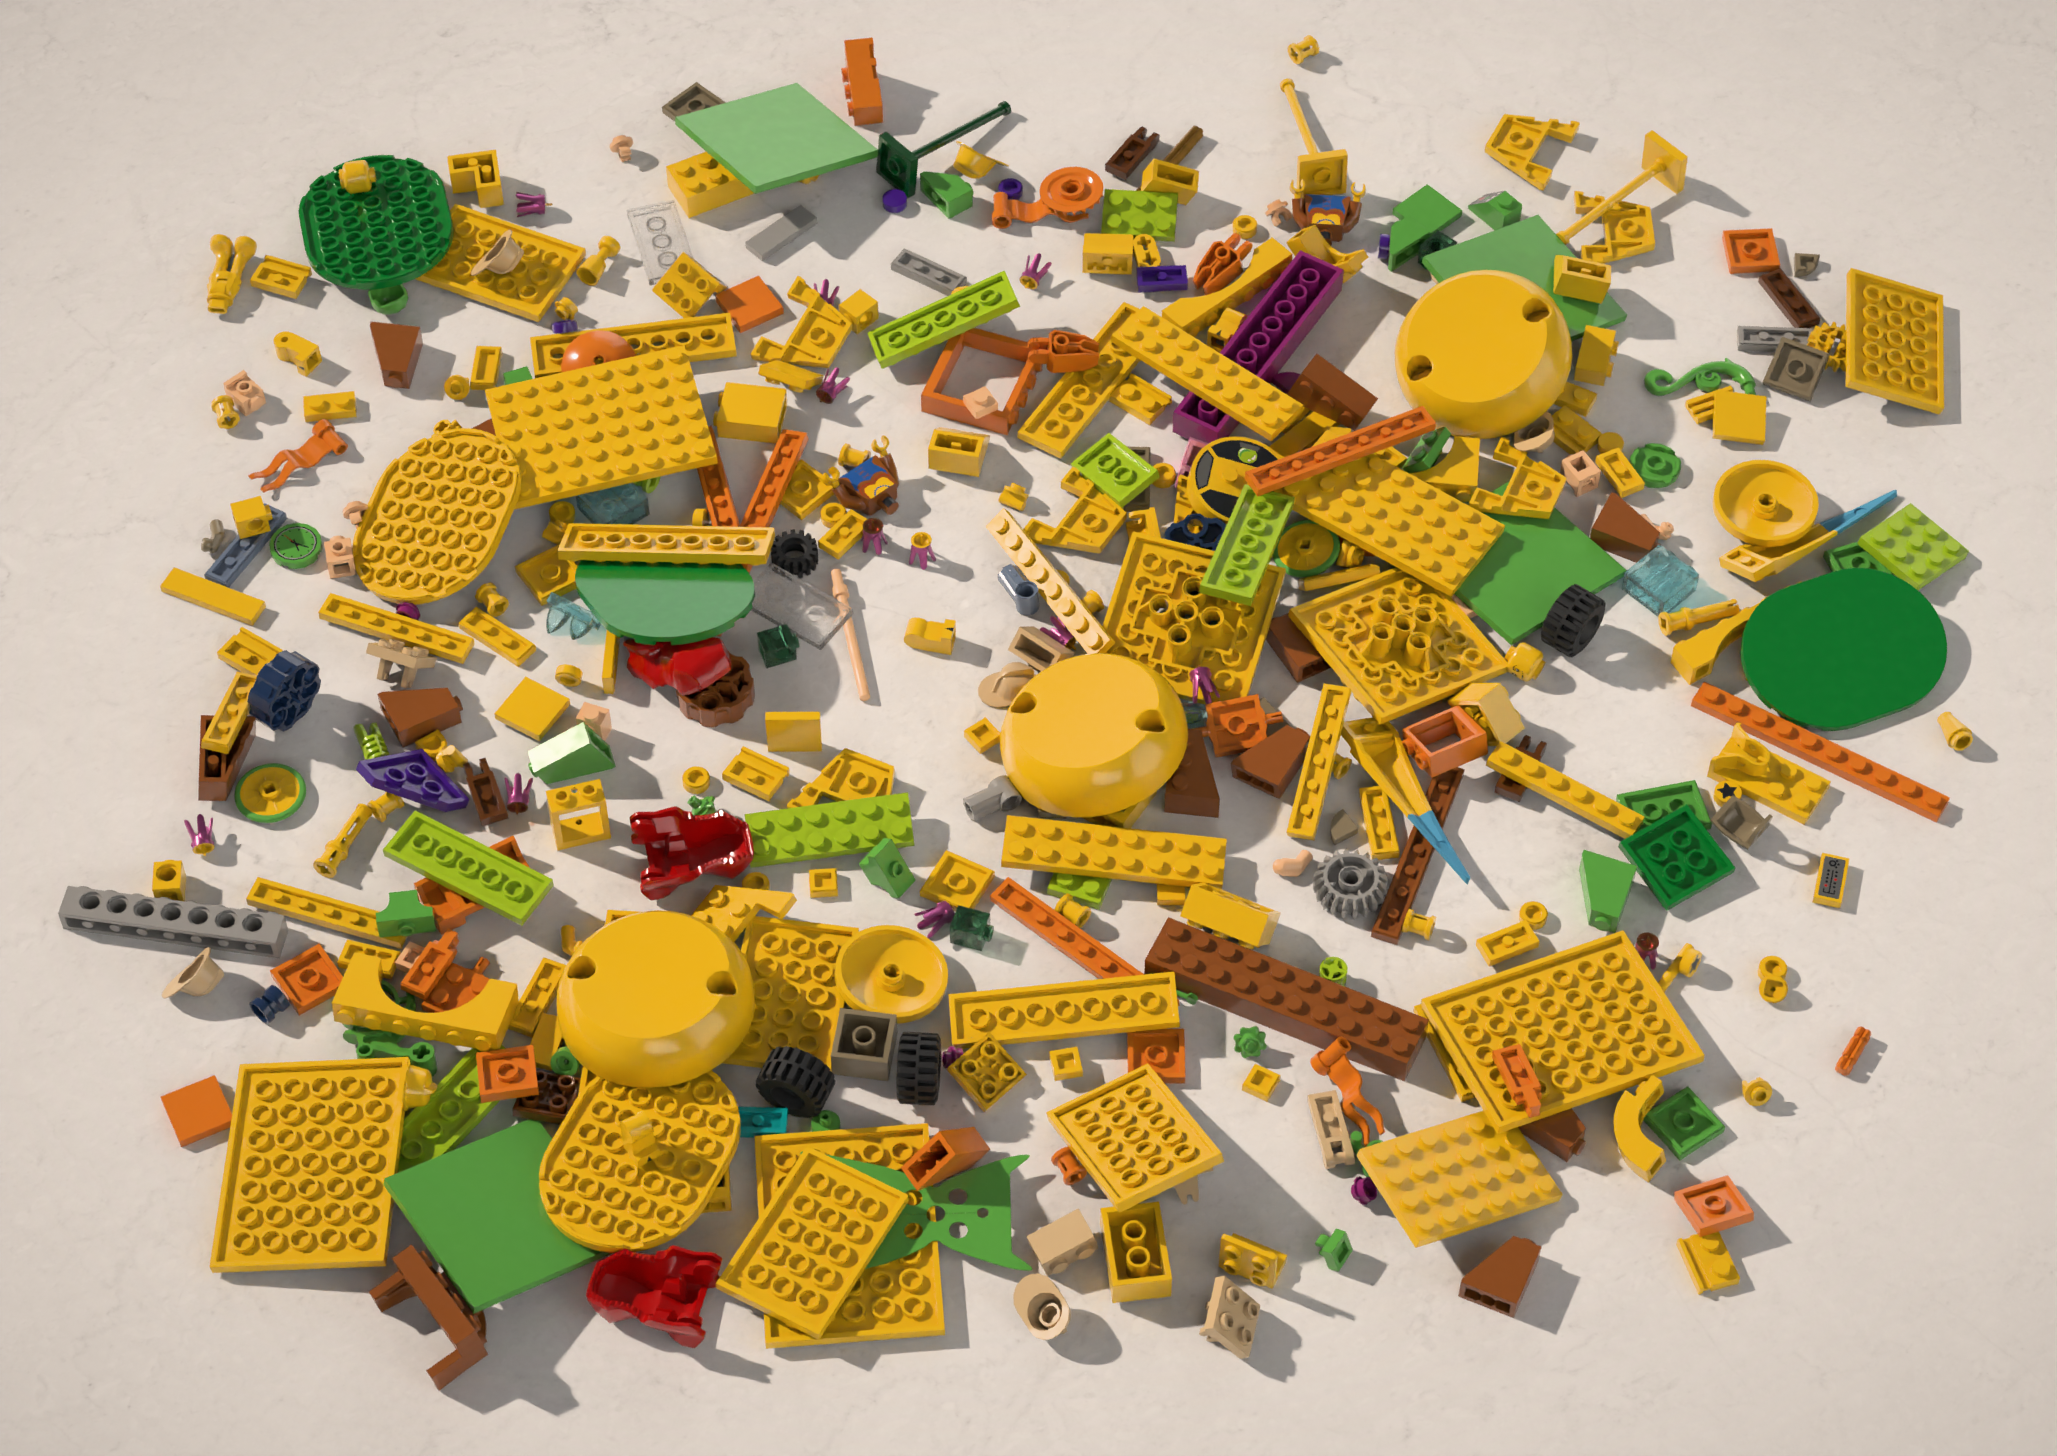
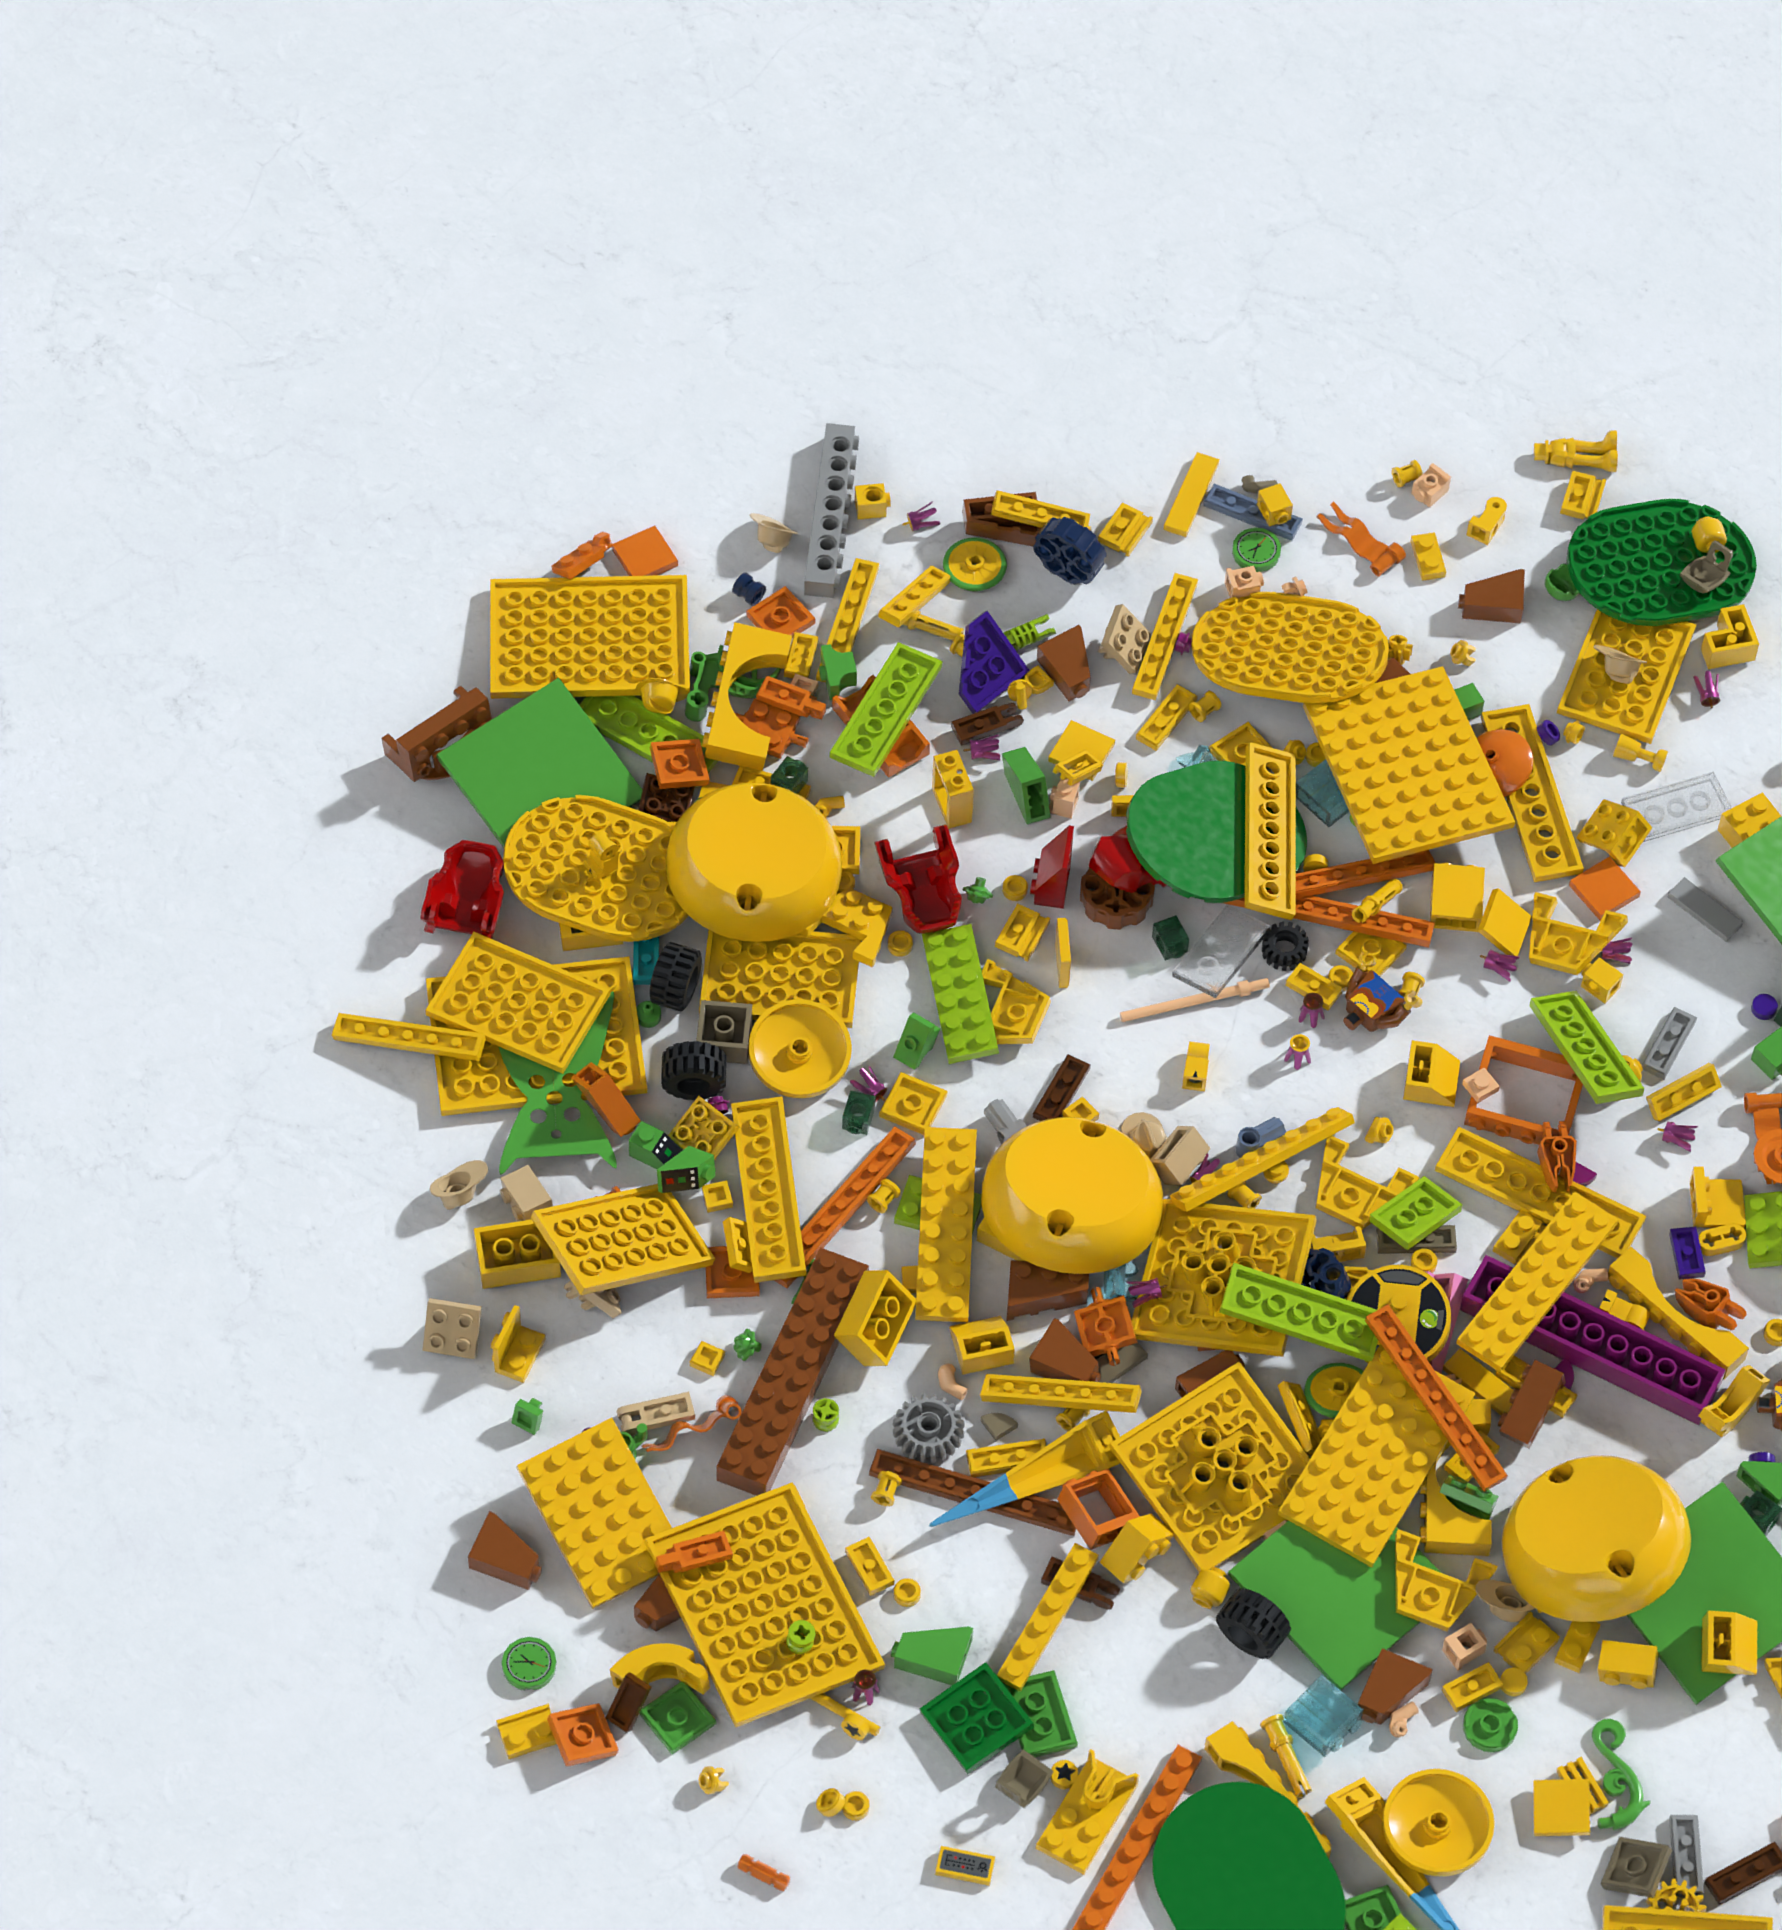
camera: 85 degrees right, 5 degrees up
(194, 1170) = (583, 556): none -> orange hinge
(312, 842) = (914, 596): none -> yellow tile
(405, 180) = (1705, 573): none -> dark tan piece
(486, 367) = (1493, 675): yellow tile -> none
(545, 977) = (792, 768): none -> clear green brick
(561, 704) = (1081, 771): none -> yellow tile
(692, 726) = (1053, 871): none -> red slope
(761, 471) = (1372, 904): none -> yellow pin
(823, 883) = (906, 996): yellow tile -> none
(846, 1358) = (408, 1036): none -> yellow plate
(950, 753) = (1062, 1088): none -> reddish brown tile
(980, 253) = (1683, 1092): none -> yellow plate
(1004, 1120) = (652, 1146): none -> bright green slope
(1039, 1082) = (686, 1171): none -> slope
(1124, 1040) = (737, 1244): none -> yellow plate
(1252, 830) = (982, 1344): none -> yellow slope
(1601, 997) = (797, 1642): none -> lime wheel
(1629, 1258) = (529, 1663): none -> bright green tile
(1680, 1156) = (628, 1702): none -> reddish brown tile

